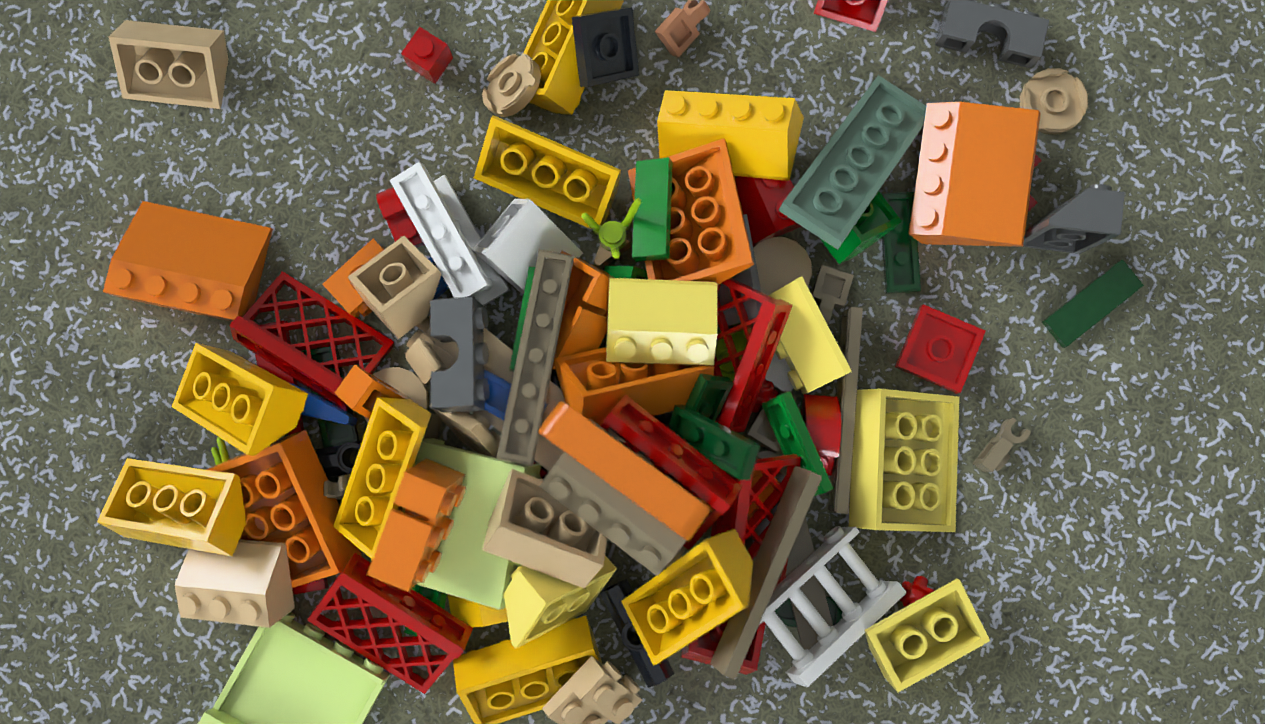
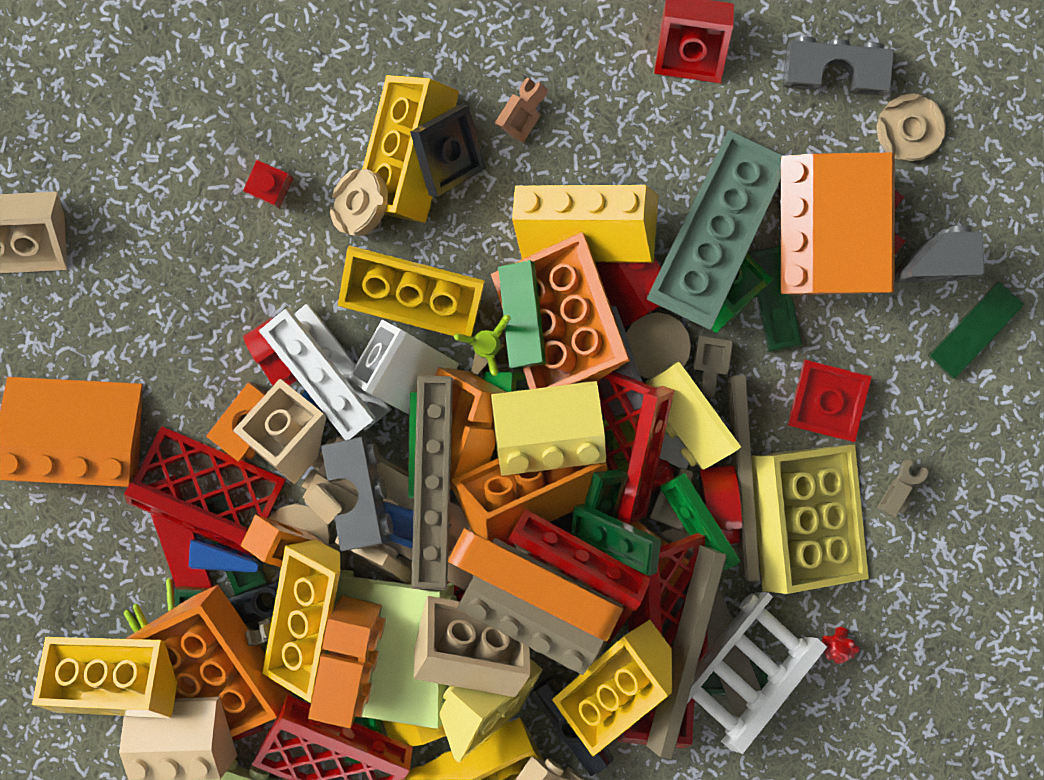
camera: 10 degrees left, 5 degrees up
(237, 399) = (146, 565): yellow slope -> none
(926, 636) = (851, 686): light yellow slope -> none

